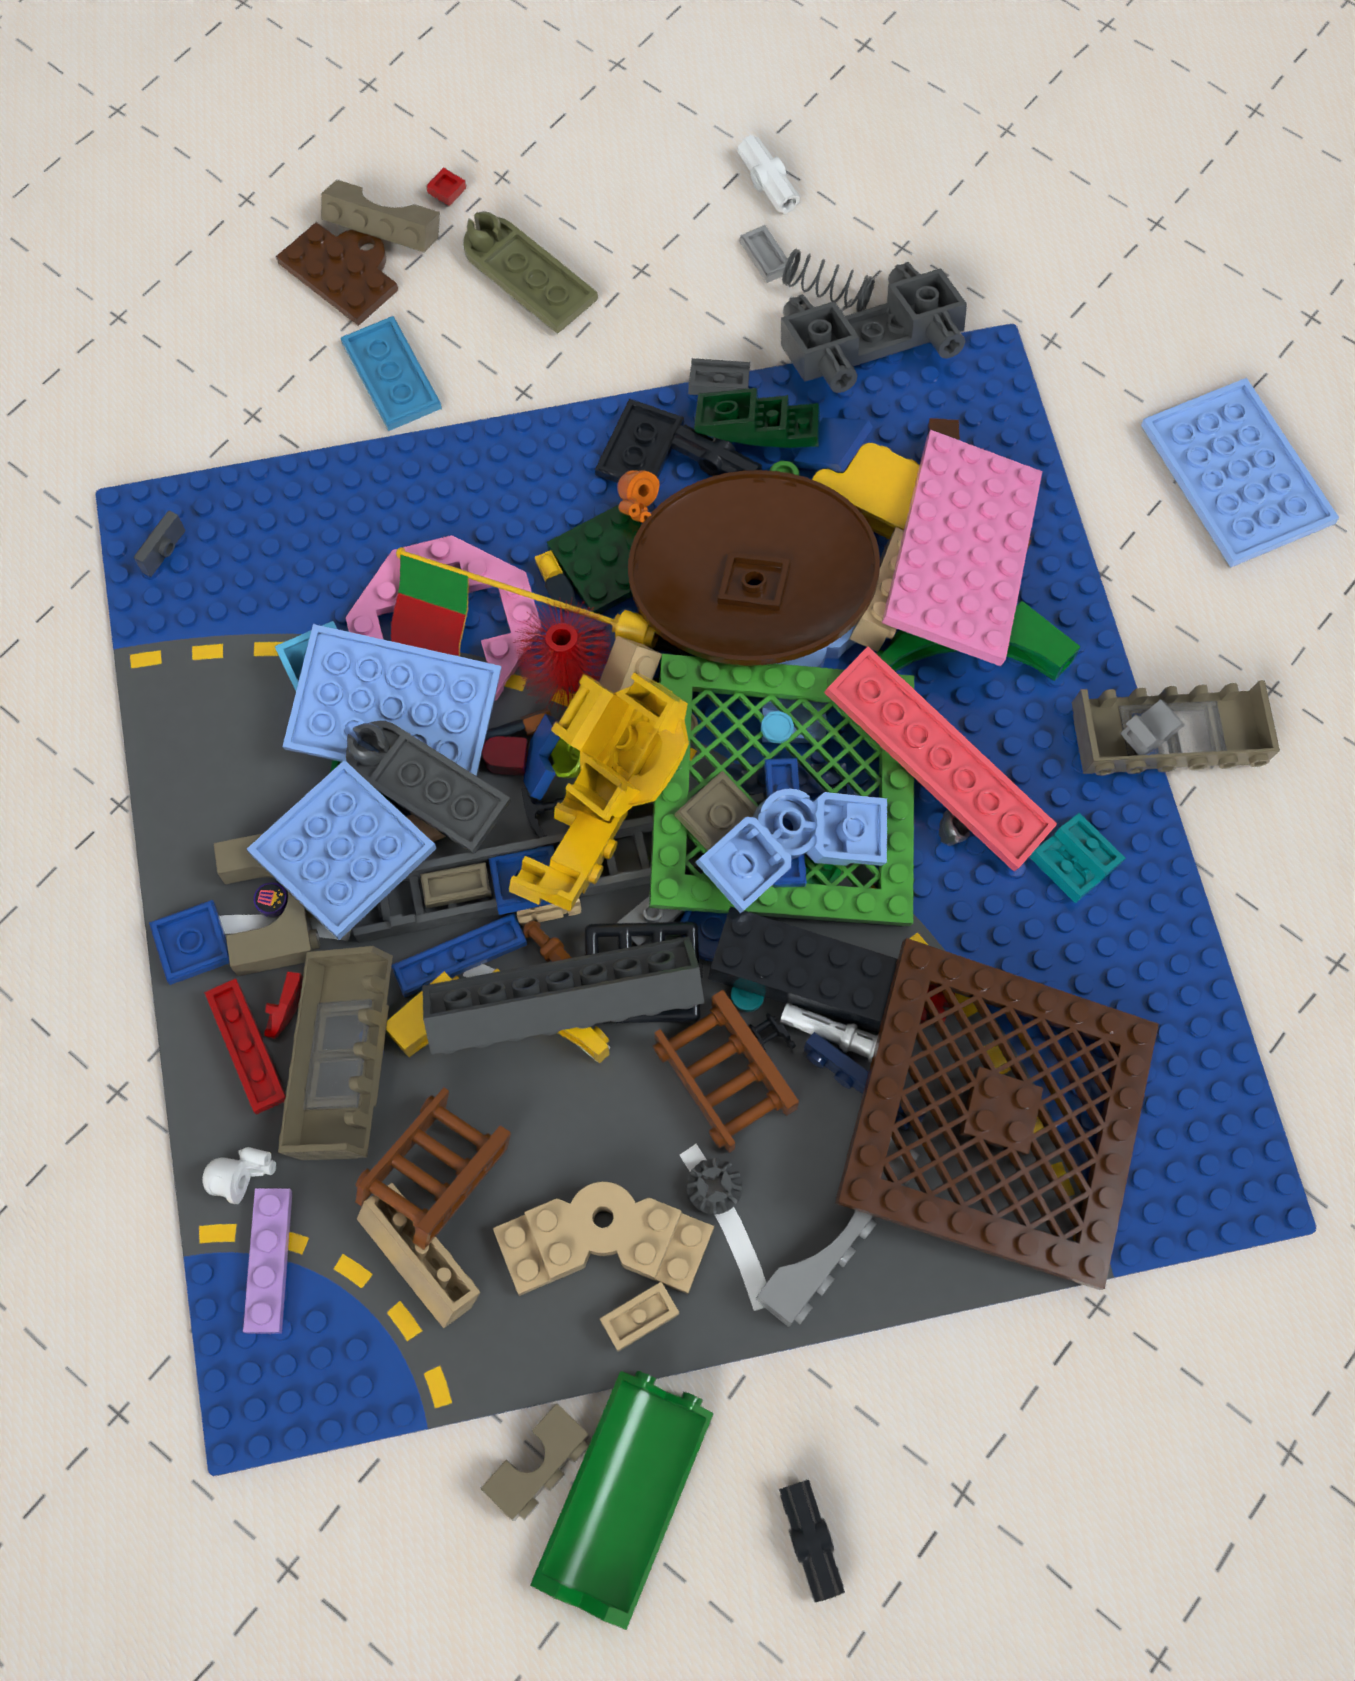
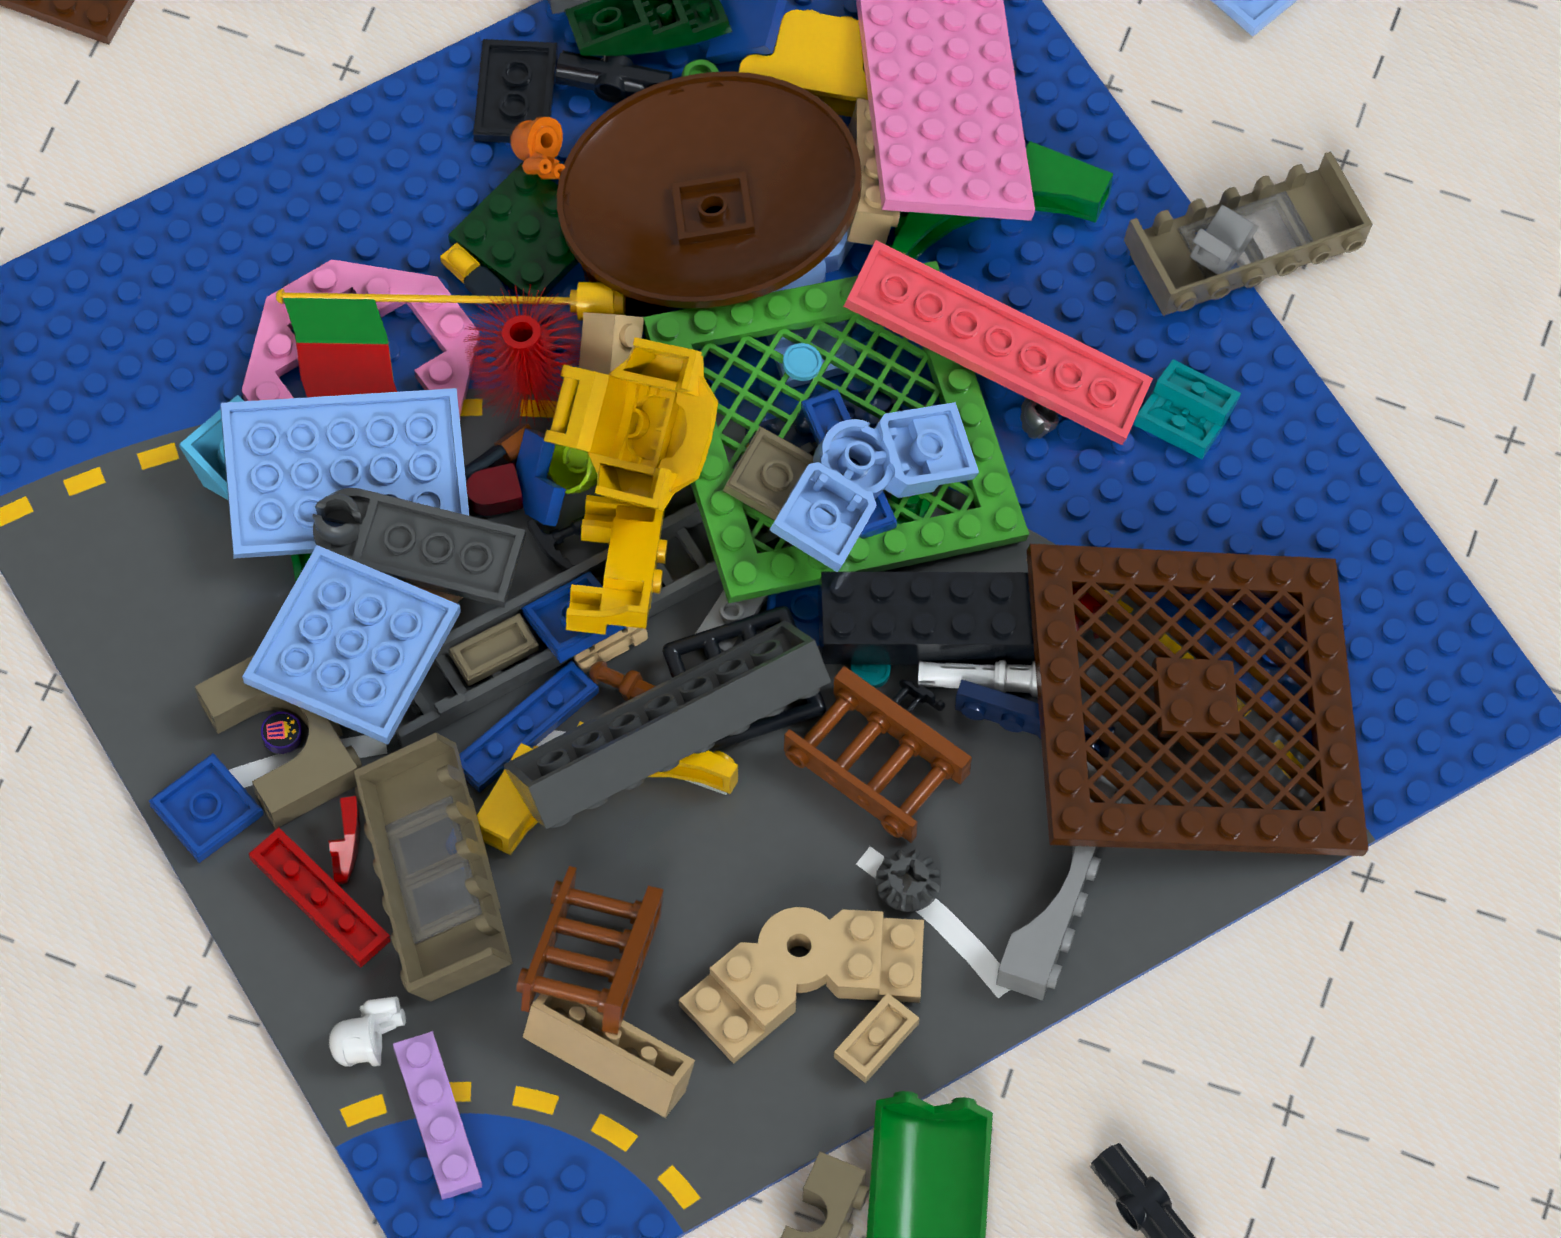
camera: 20 degrees left, 5 degrees down
(391, 373) = (174, 90): dark azure tile -> none

